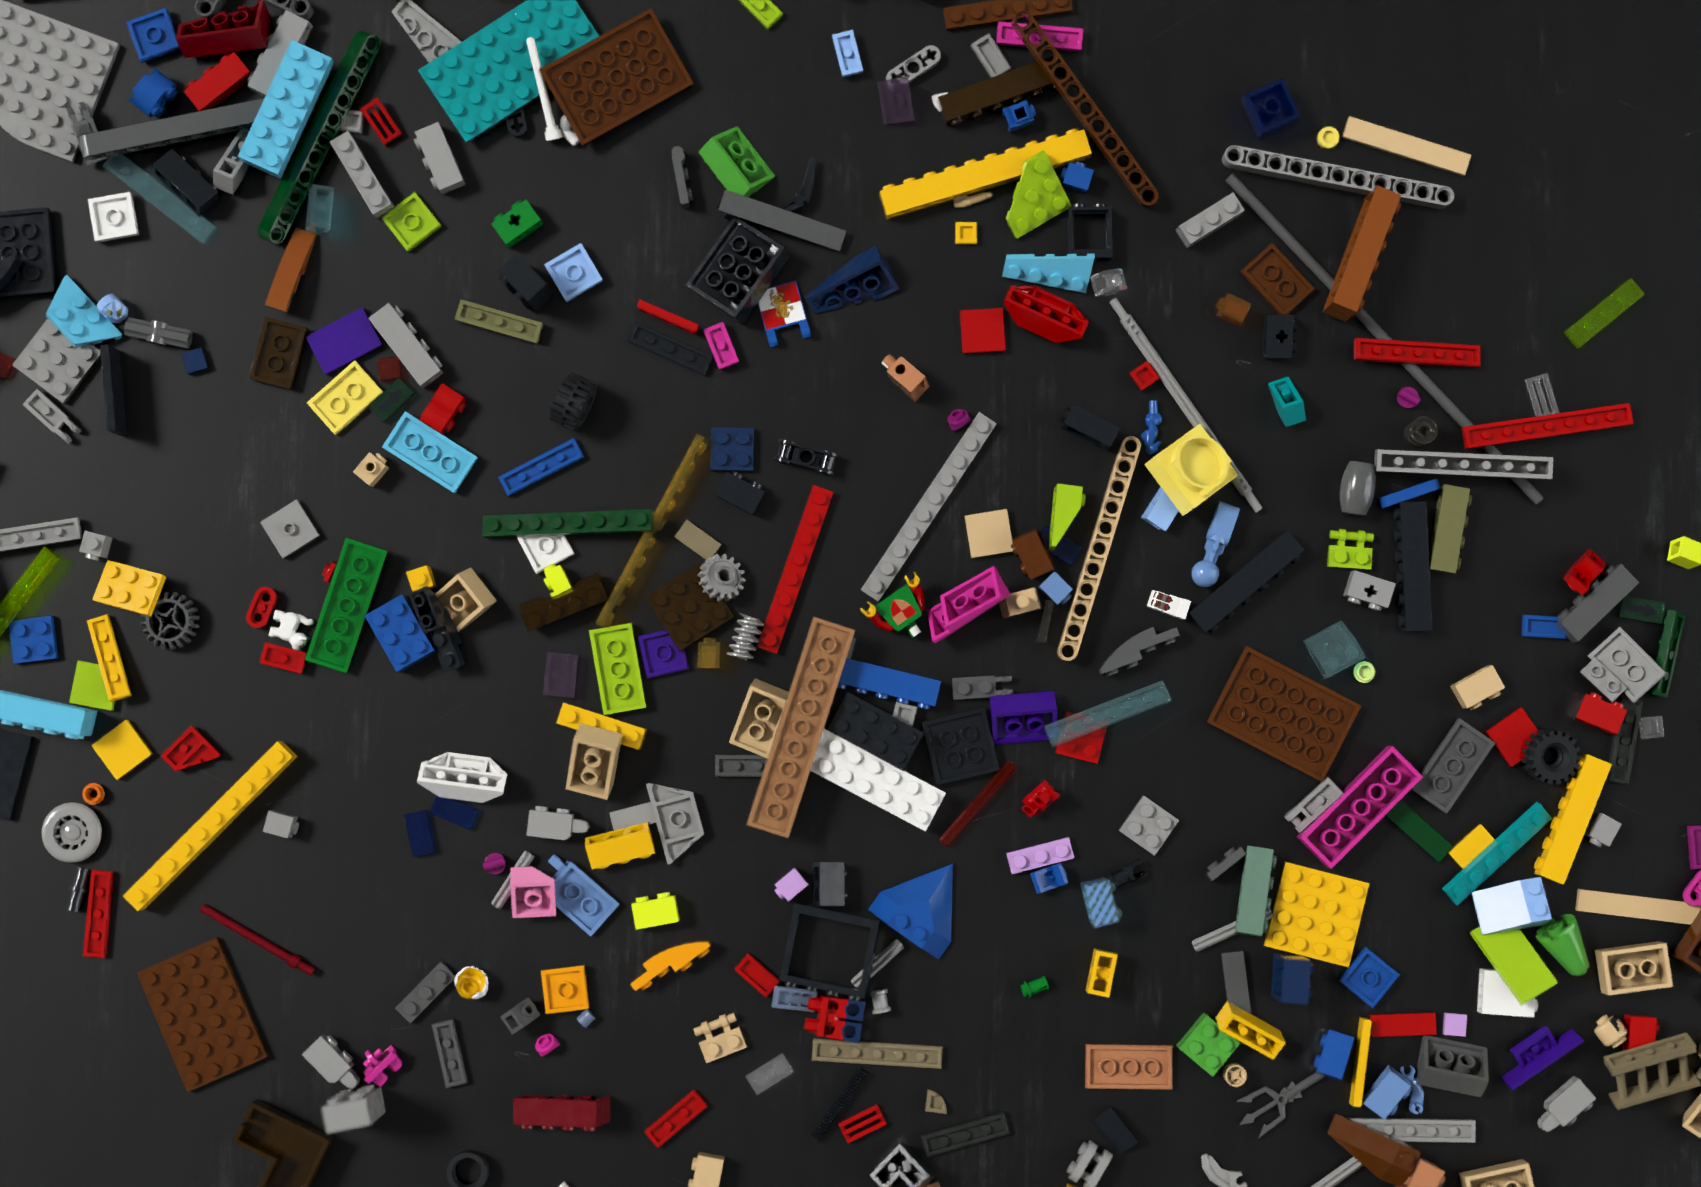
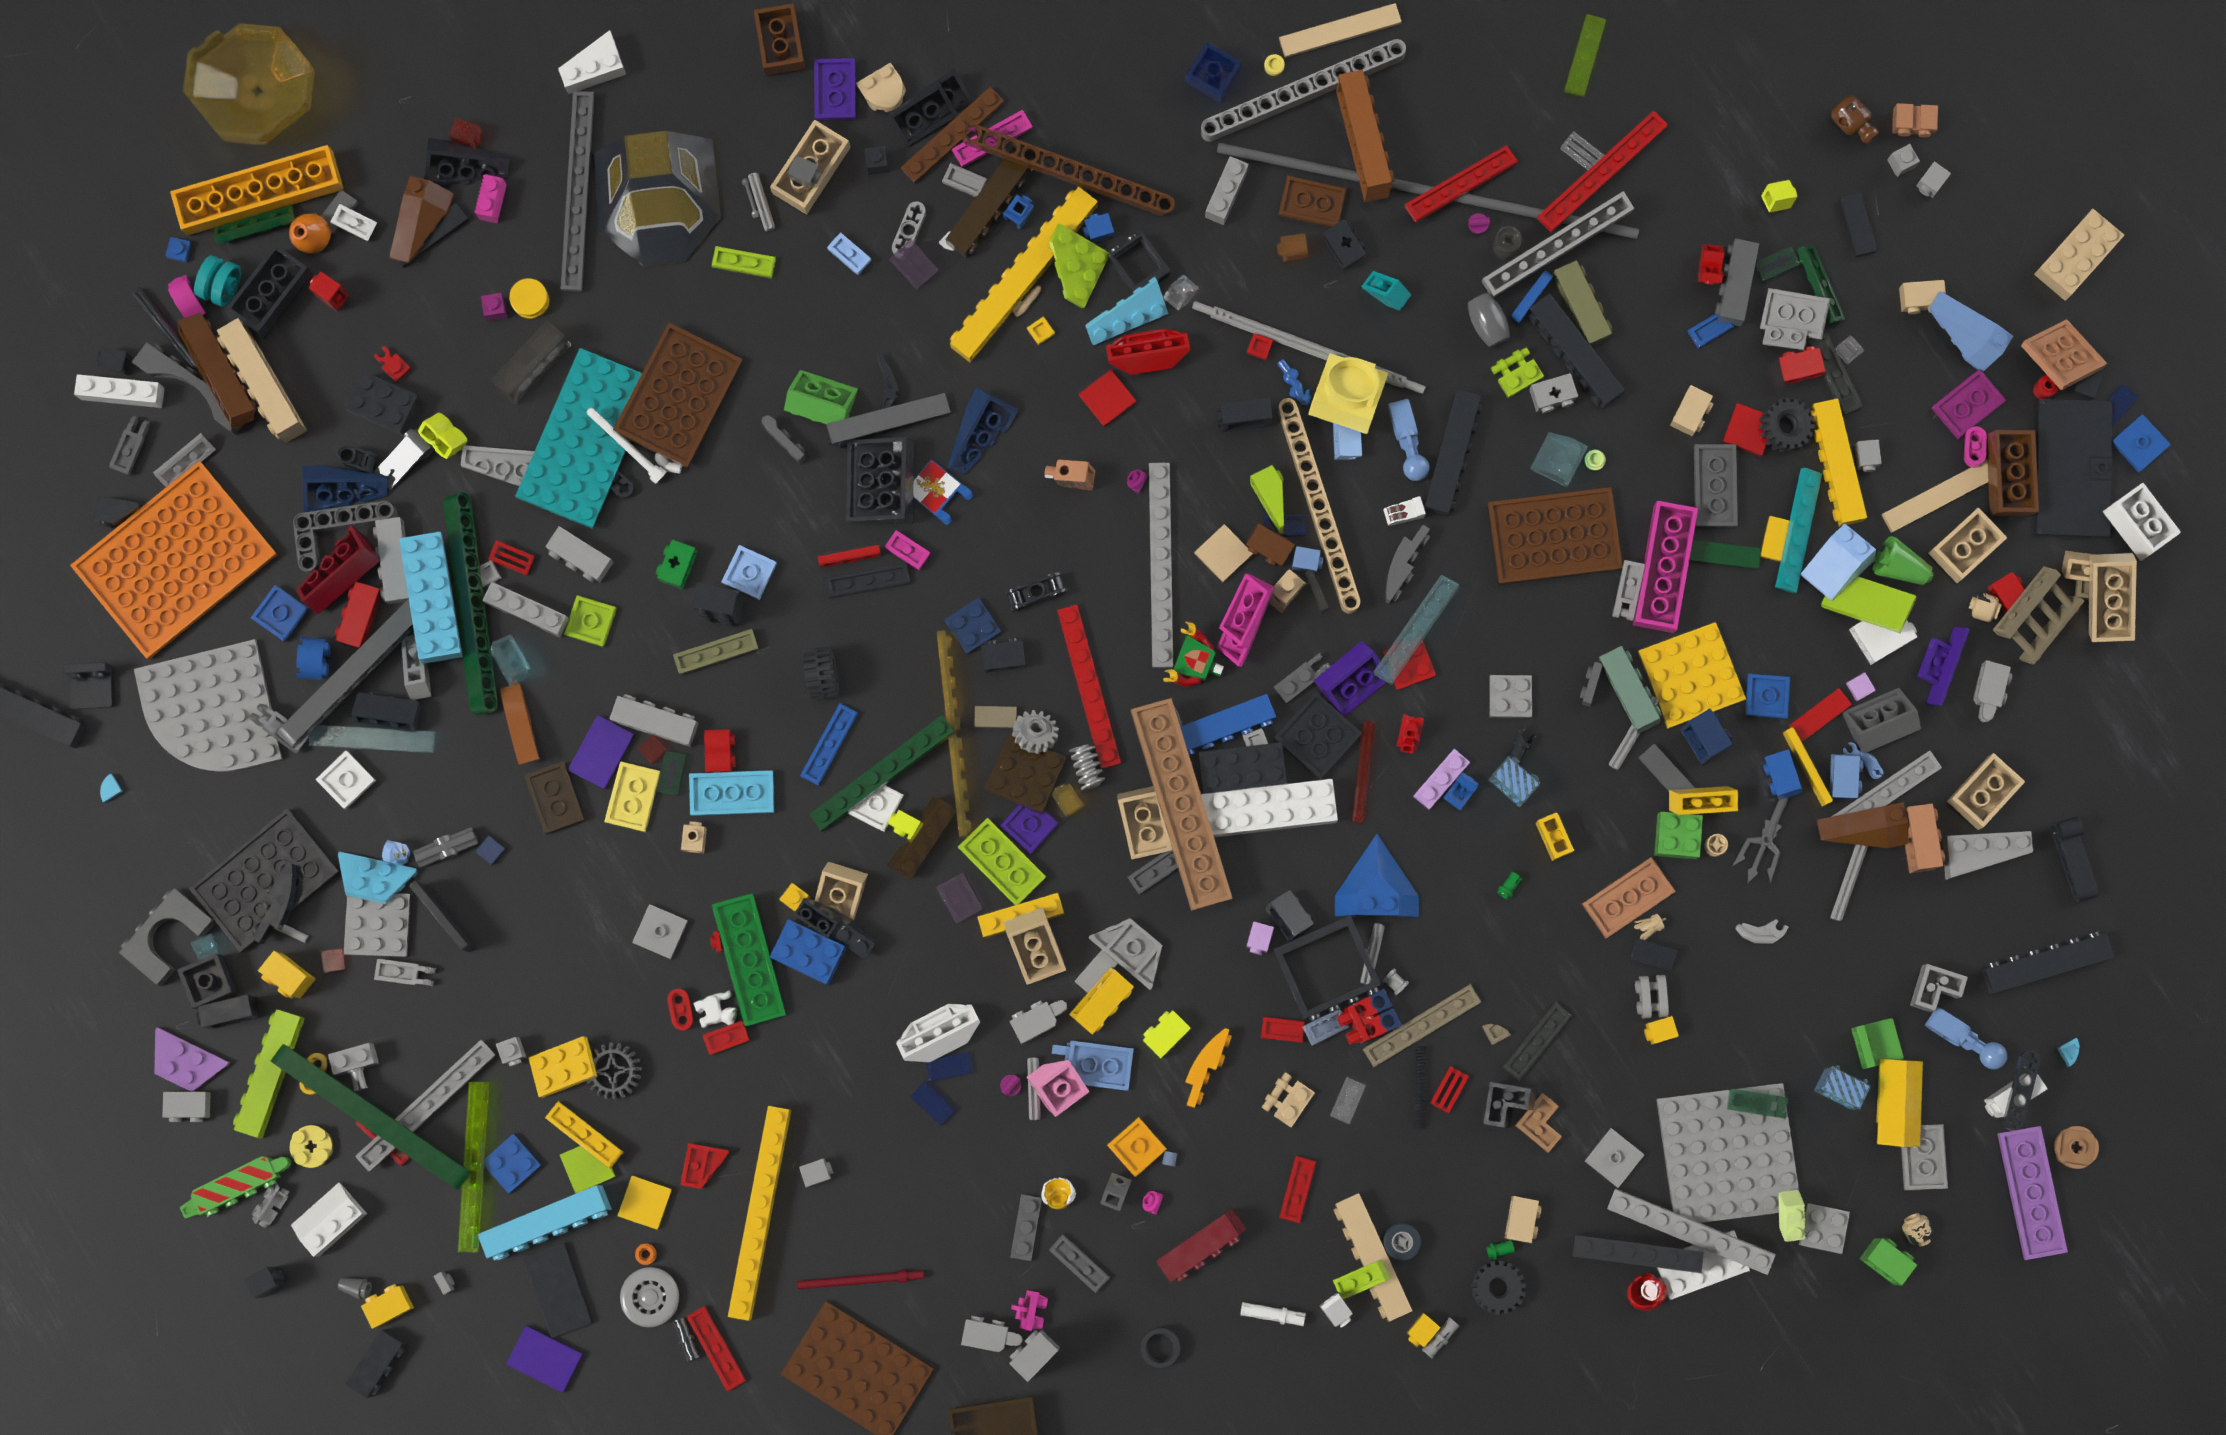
camera: 30 degrees left, 5 degrees down
(1130, 1104) = (1653, 924): none -> tan piece

